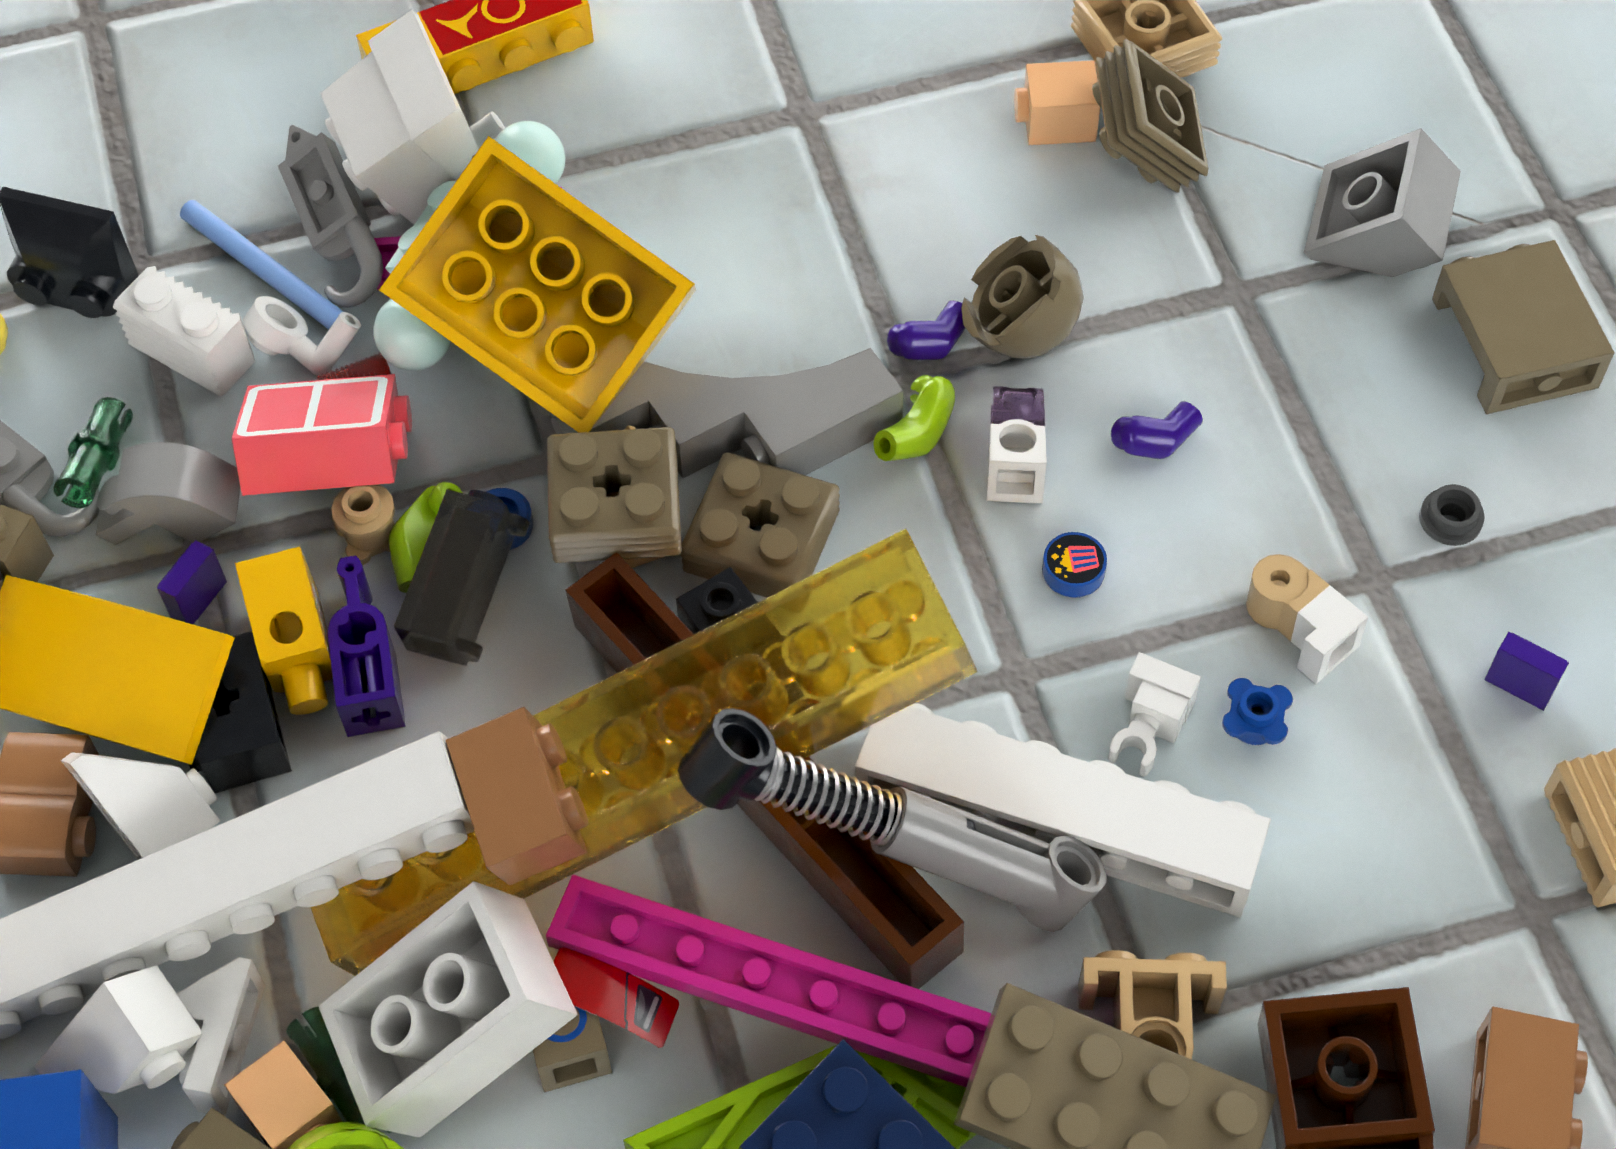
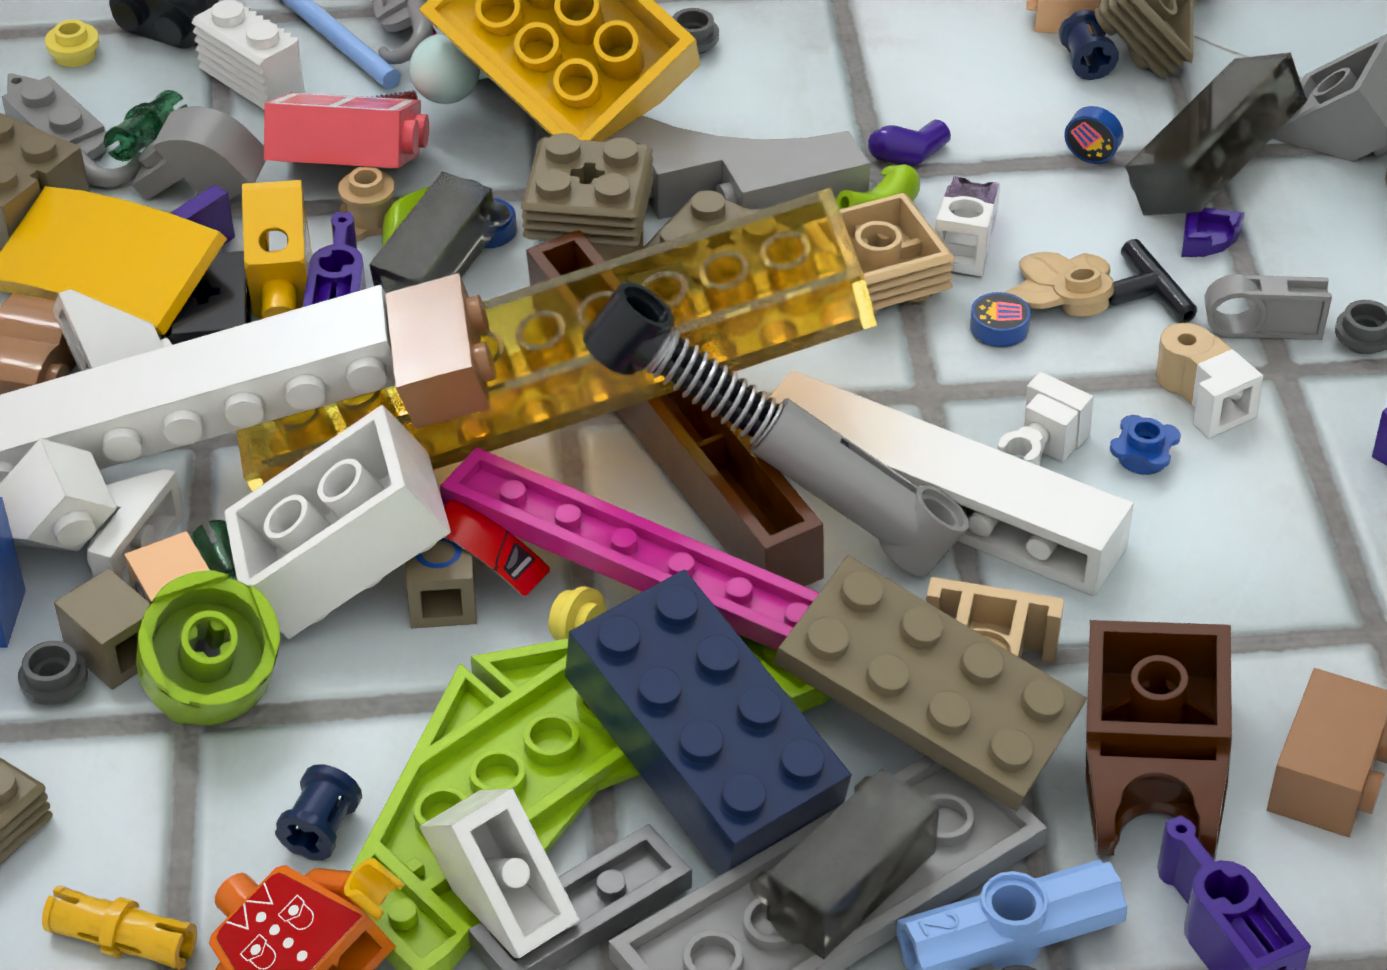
camera: 10 degrees right, 15 degrees down
(280, 329) = (331, 67): white plate -> none
(664, 200) = (700, 25): none -> dark grey plate
(724, 1062) = (574, 609): none -> light yellow plate
(965, 501) = (897, 251): none -> tan brick
(1024, 299) = (1000, 119): dark tan cylinder -> none
(1093, 168) = (1079, 41): none -> dark blue bush
(1125, 296) = (1094, 134): none -> tile
(1131, 503) = (1076, 284): none -> tan plate
(1155, 436) = (1099, 238): dark purple arm -> none
(1221, 484) = (1151, 280): none -> black piece
(1255, 281) = (1216, 134): none -> clear smoke brick
(1265, 403) = (1210, 231): none -> dark purple tile
(1350, 508) = (1282, 308): none -> light grey piece

